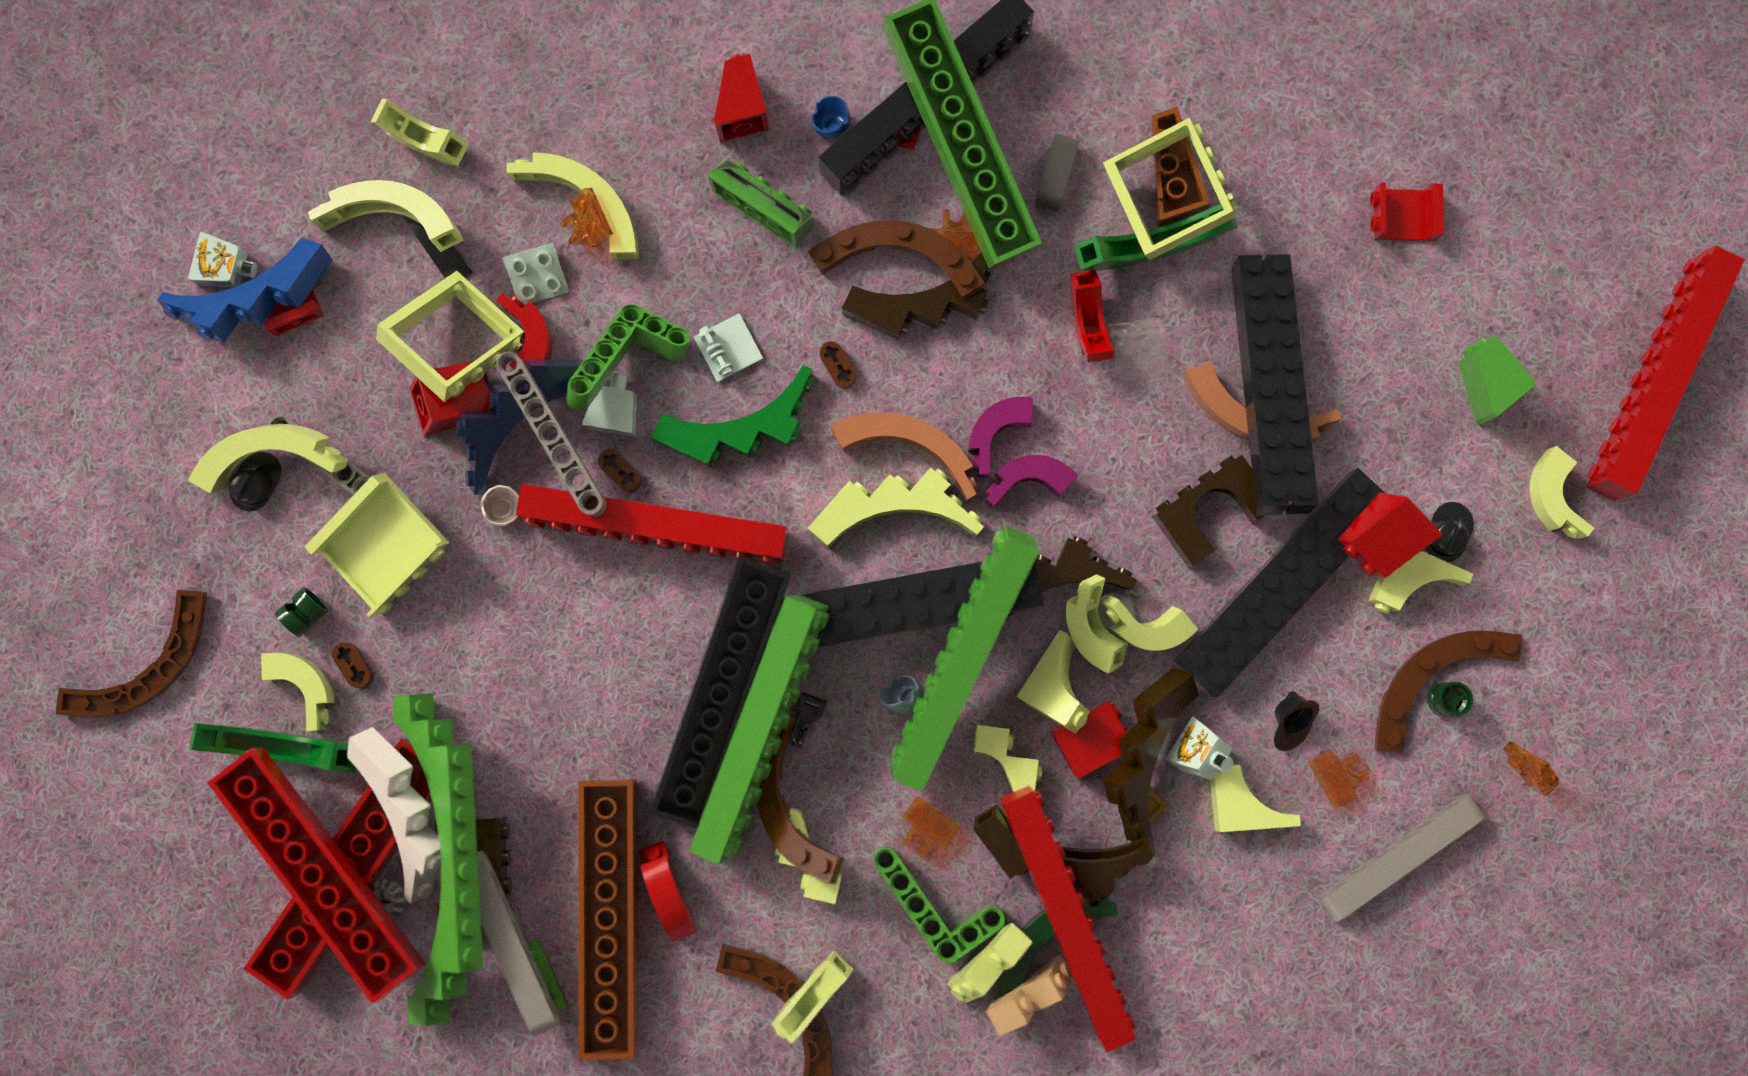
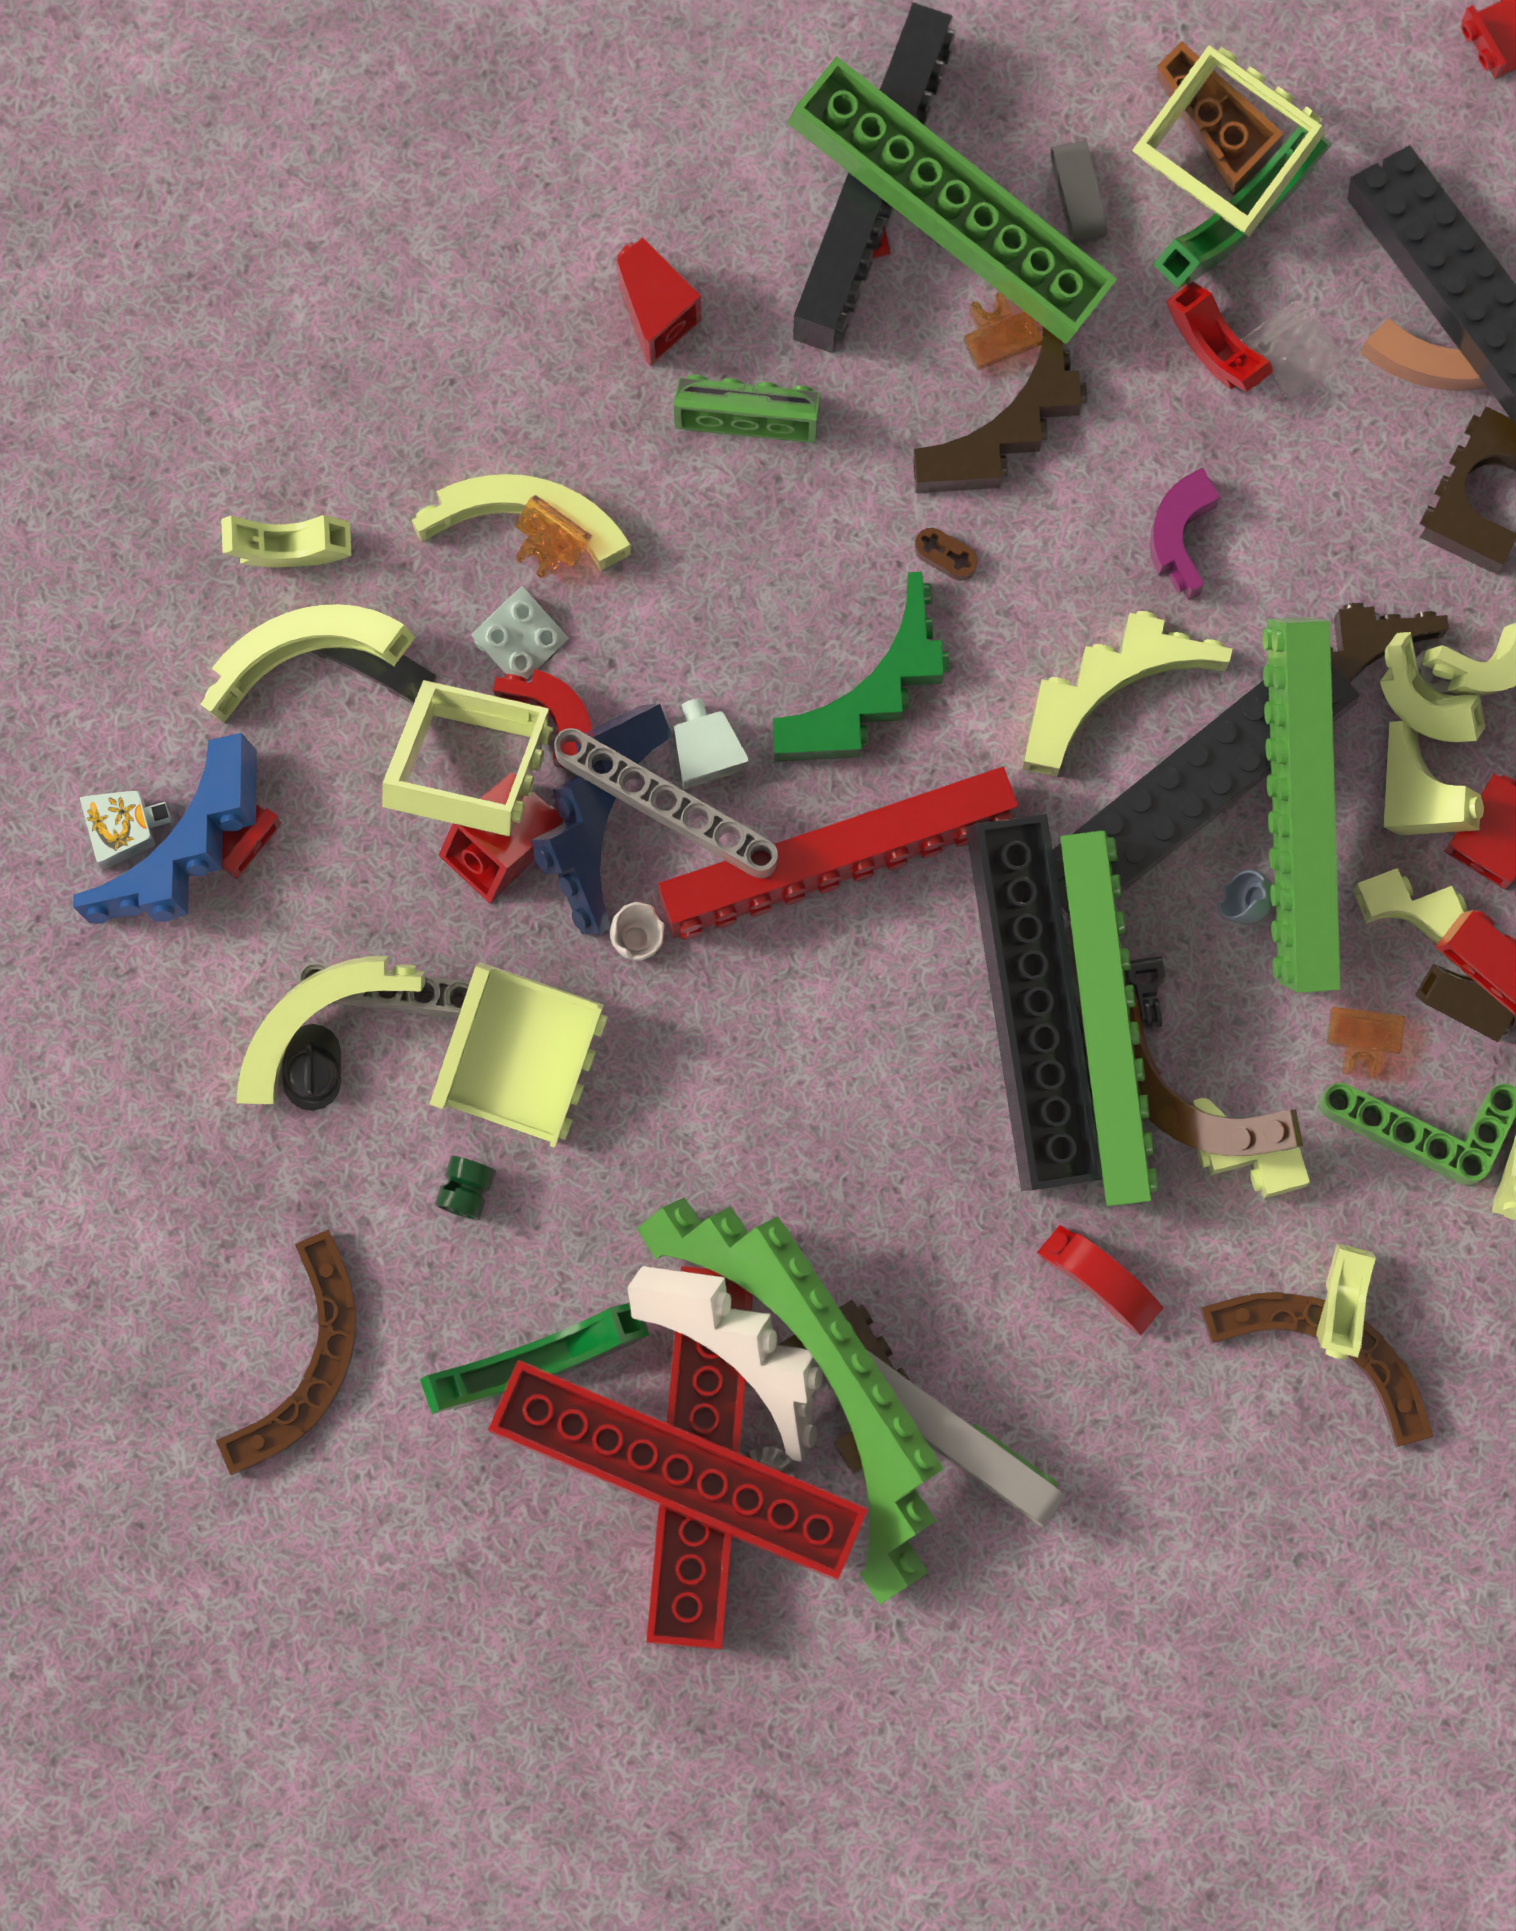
camera: 30 degrees left, 5 degrees down
(310, 680) = (509, 1260): yellowish green arch -> none
(347, 668) = (557, 1229): reddish brown beam -> none
(607, 919) = (1048, 1346): dark orange brick -> none
(615, 474) = (757, 808): reddish brown beam -> none
(628, 326) = (682, 633): bright green beam -> none
(727, 347) = (801, 602): light aqua hinge -> none
(830, 117) = (772, 264): blue hair -> none
(905, 237) = (941, 360): reddish brown plate -> none
(913, 431) = (1083, 585): nougat arch -> none
(1036, 468) = (1262, 547): magenta arch -> none

